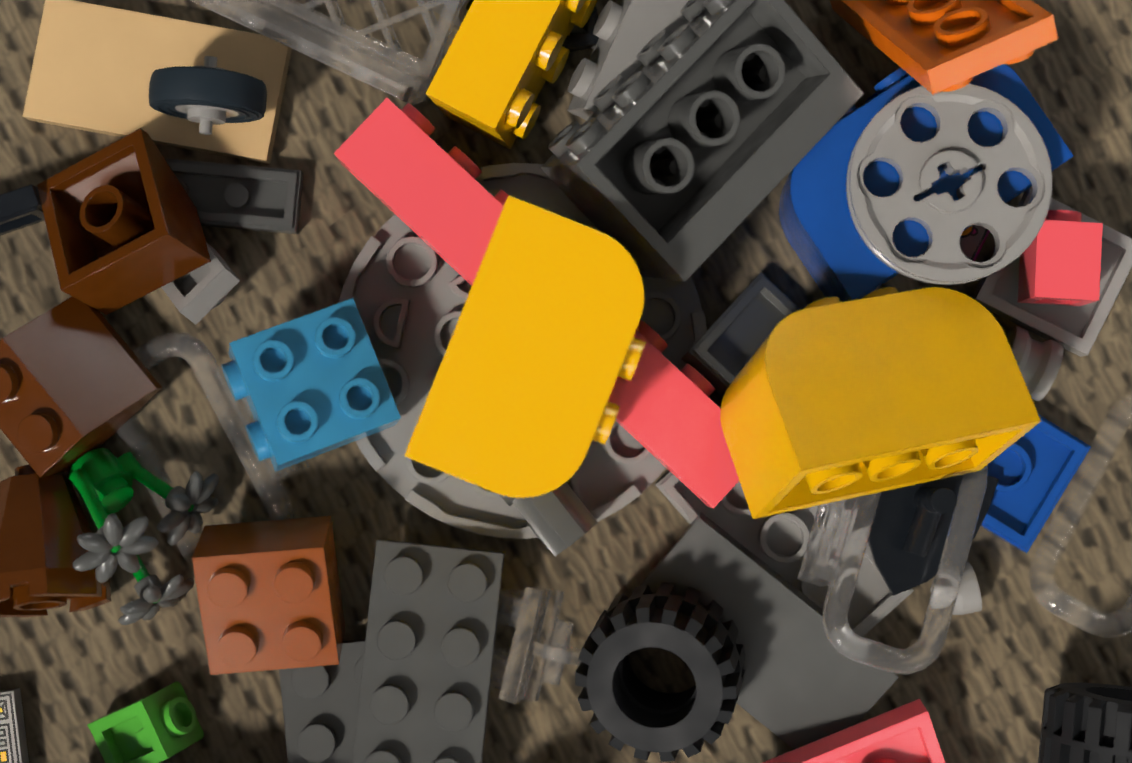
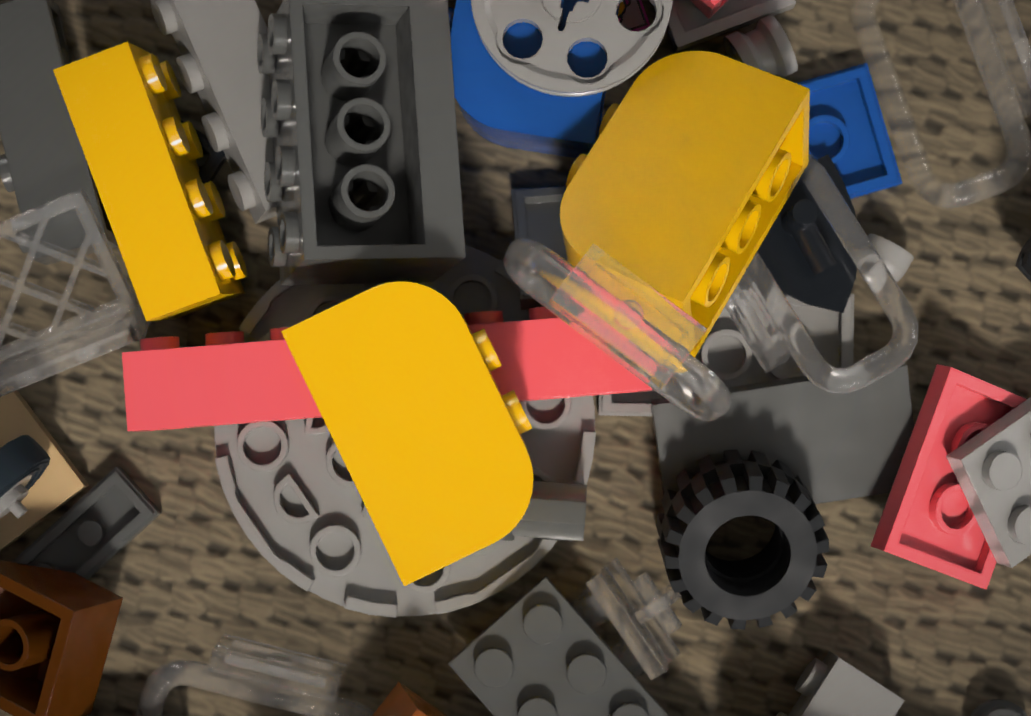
camera: 40 degrees left, 0 degrees up
(202, 288) = (137, 623): light grey plate -> none
(310, 385) = (286, 608): dark azure brick -> none
(745, 440) = (624, 321): none -> clear bar

